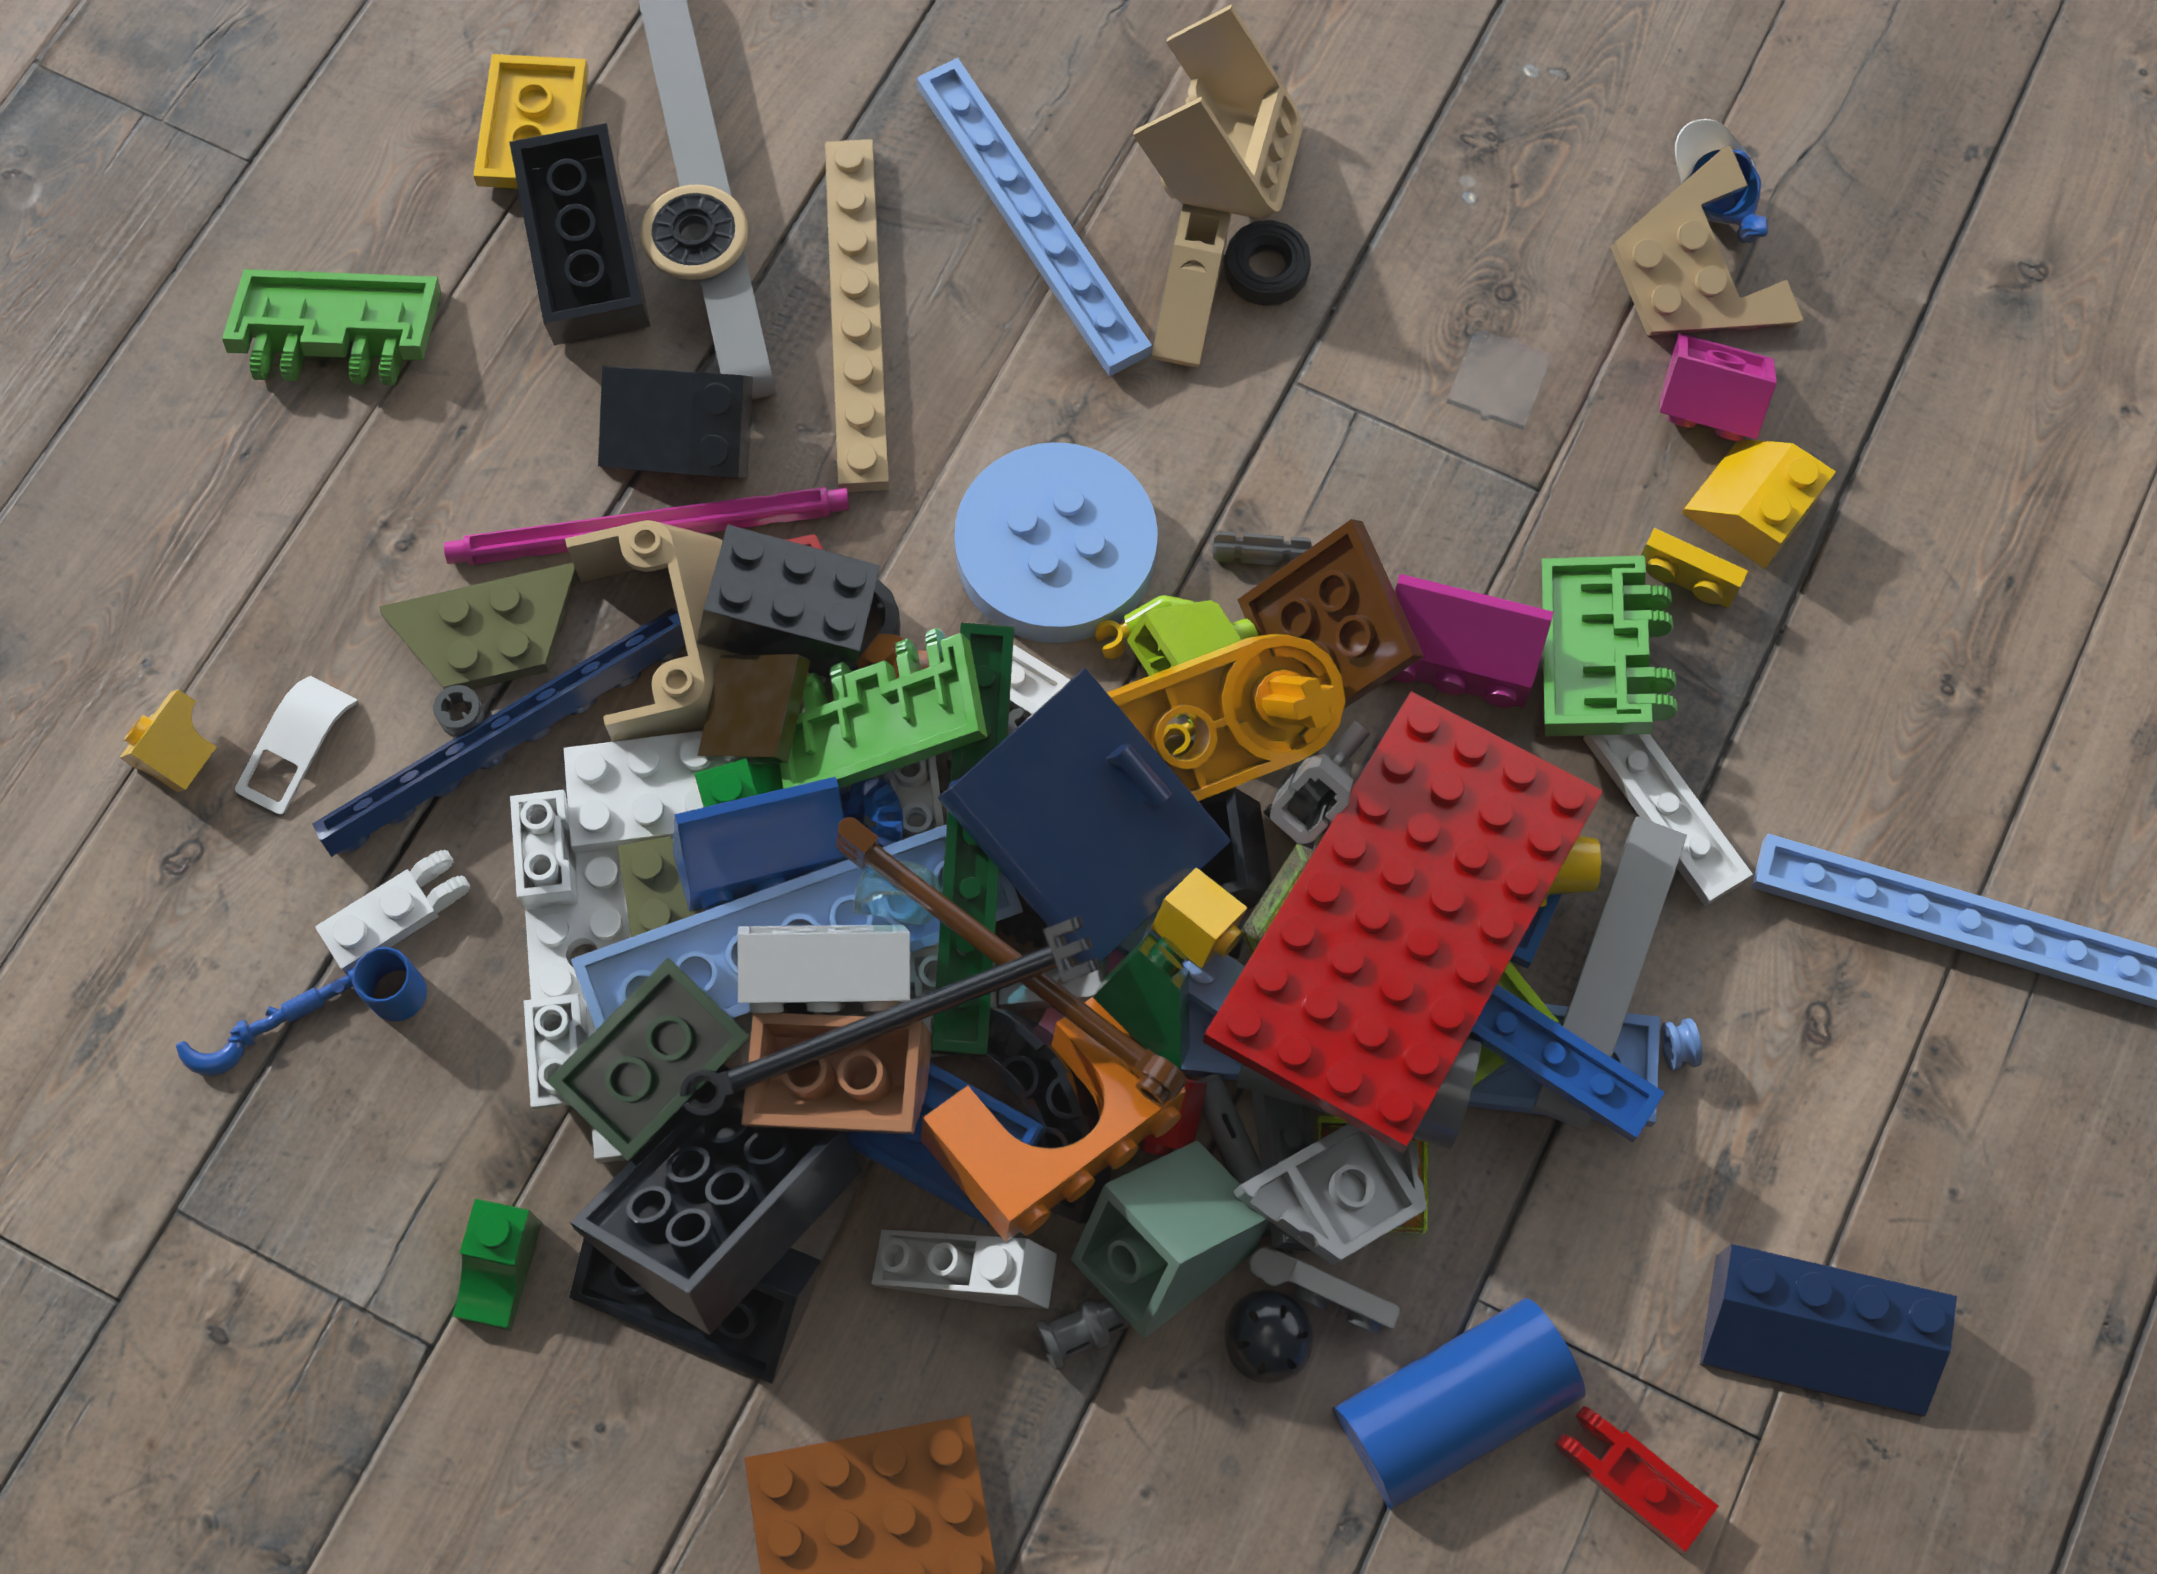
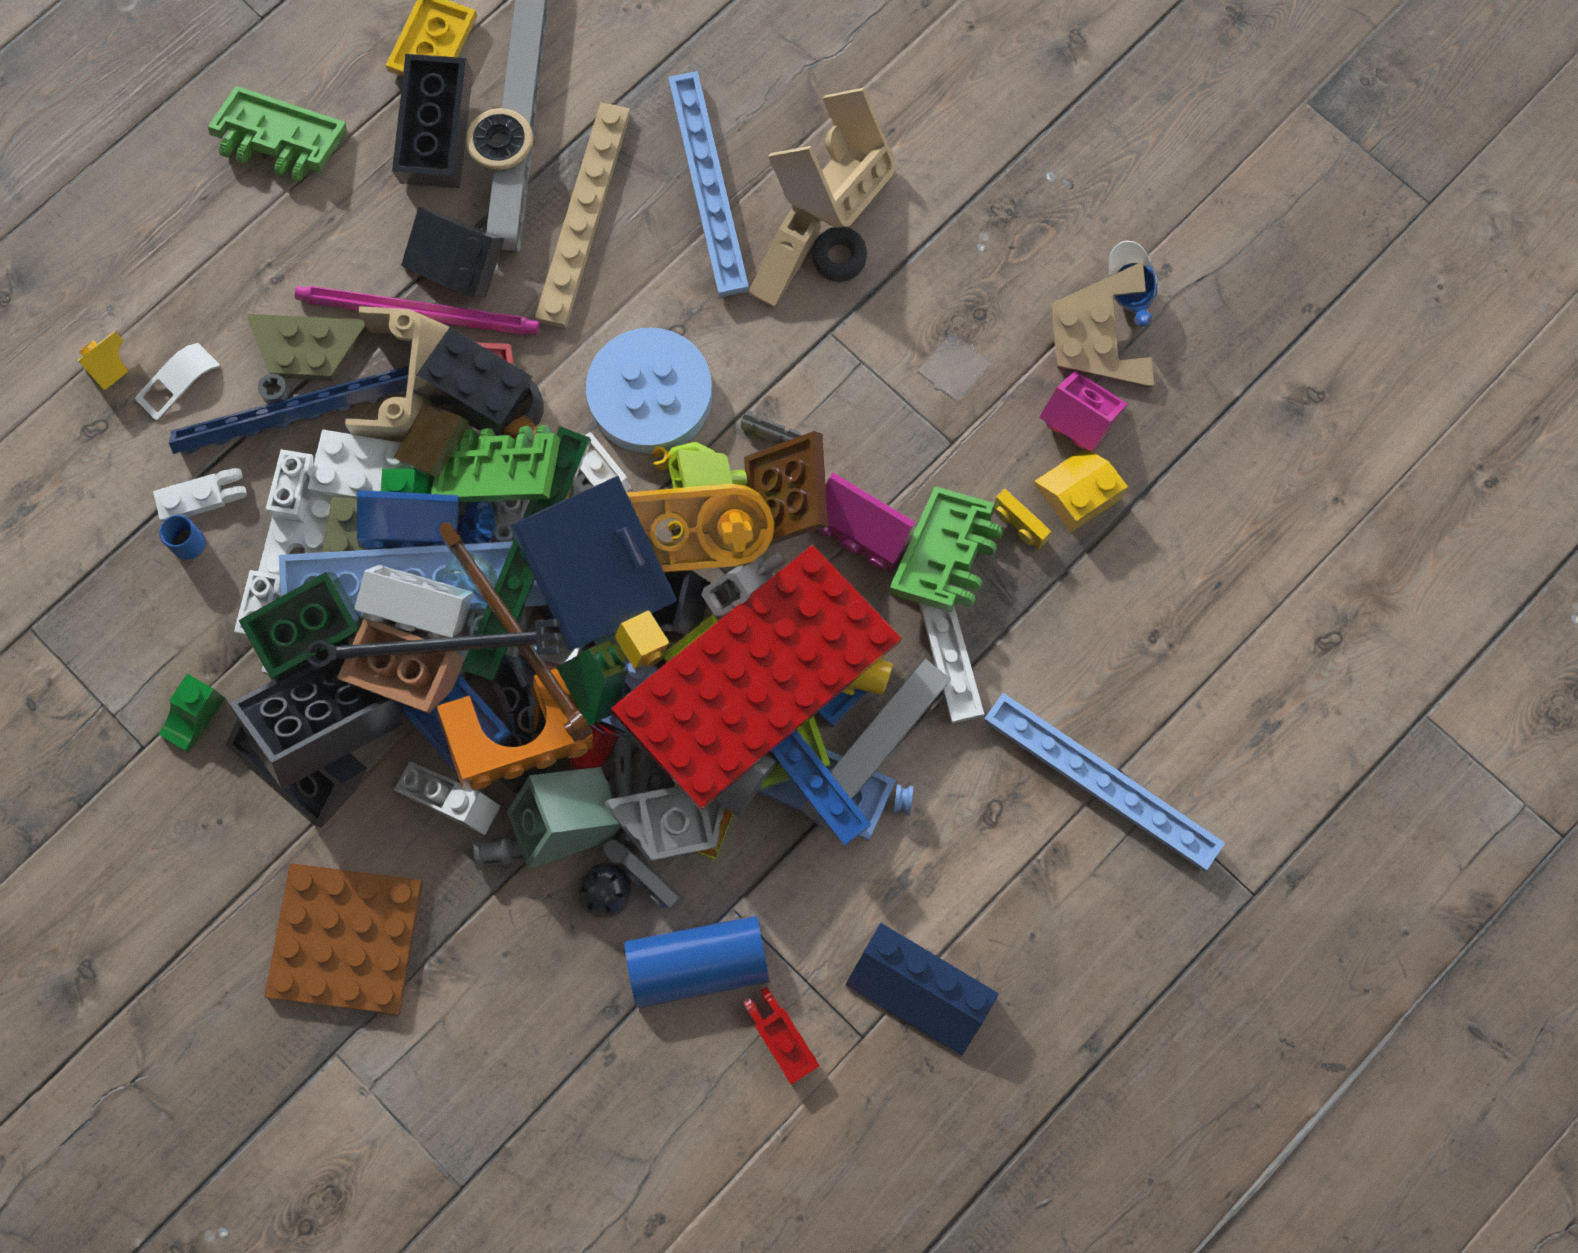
camera: 20 degrees right, 5 degrees up
(244, 1033) = (96, 540): blue piece -> none

